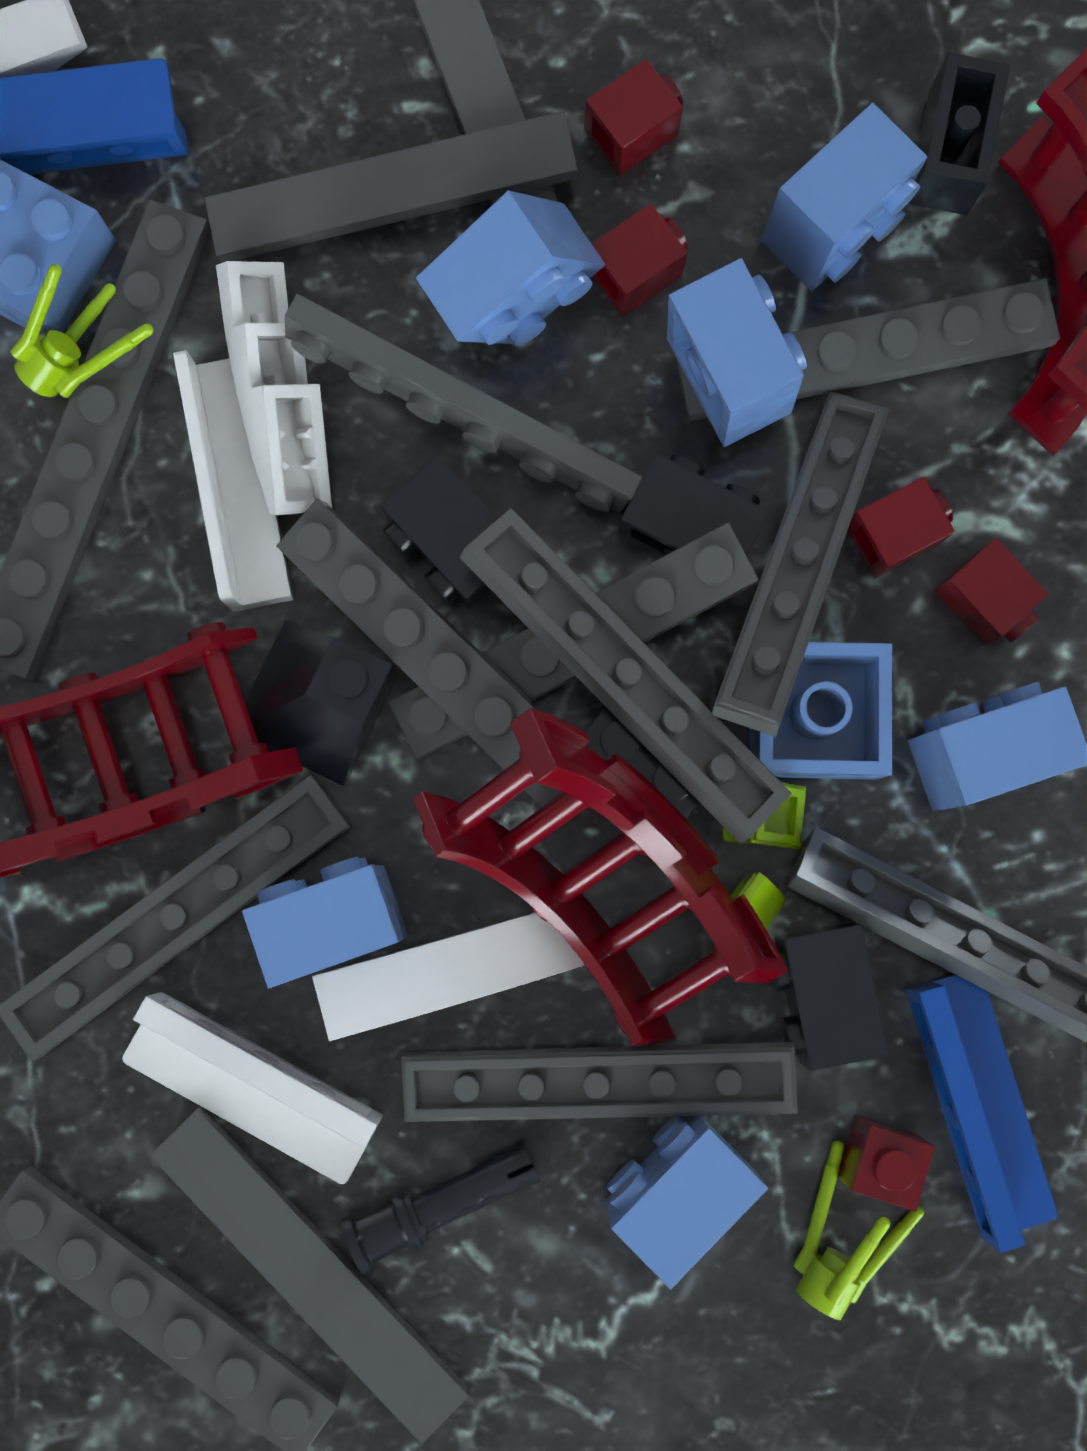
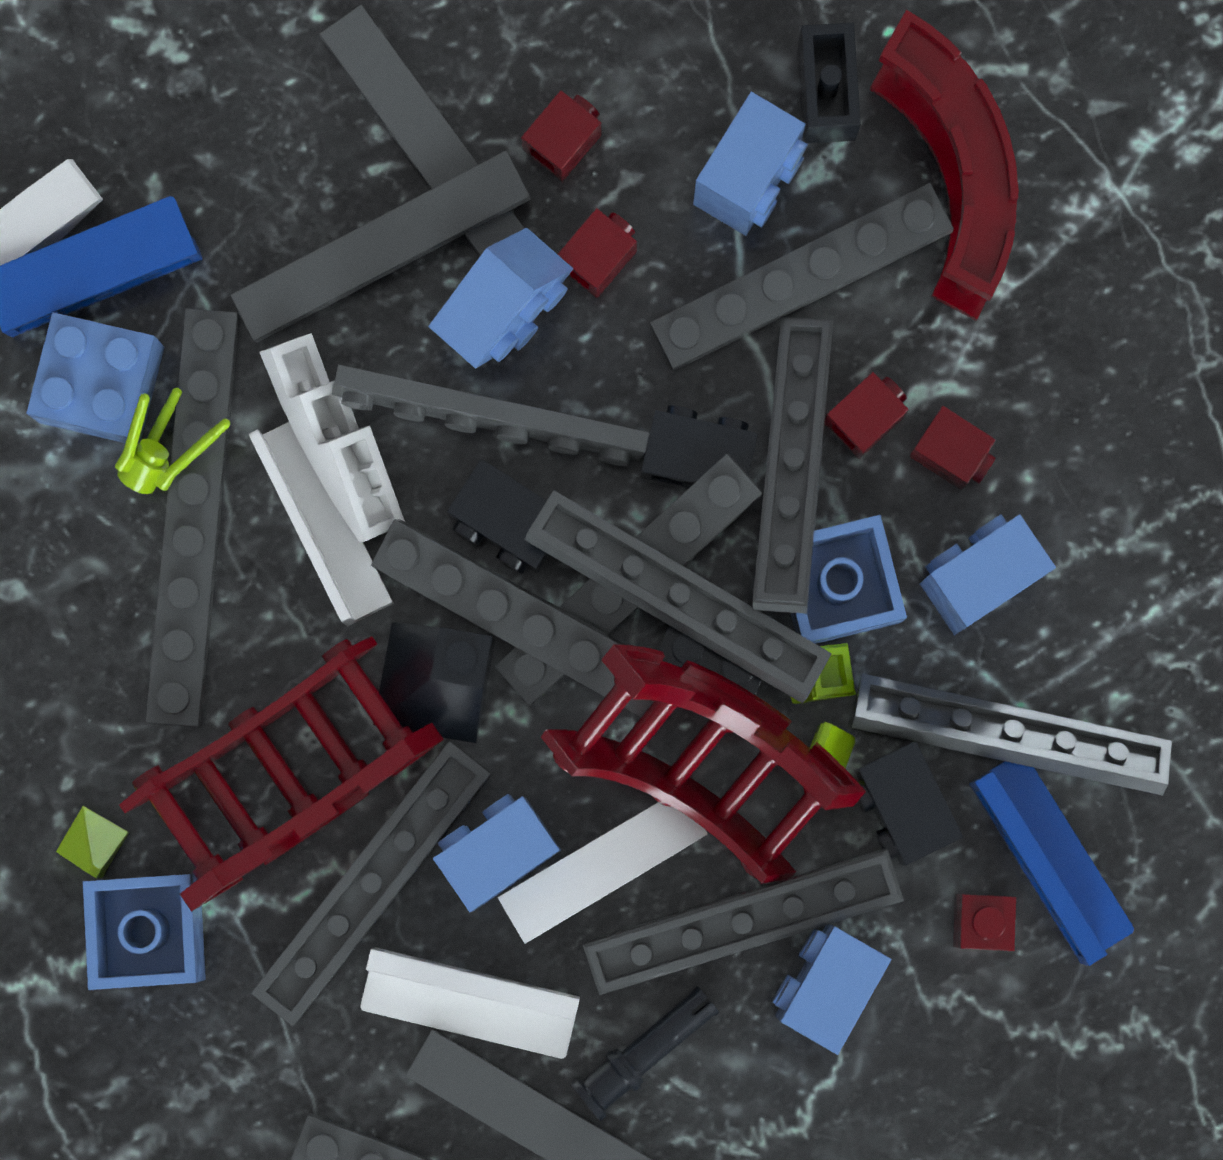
camera: 10 degrees left, 0 degrees up
(735, 351) = (695, 319): medium blue brick -> none
(835, 1279) = (970, 1024): lime plant -> none

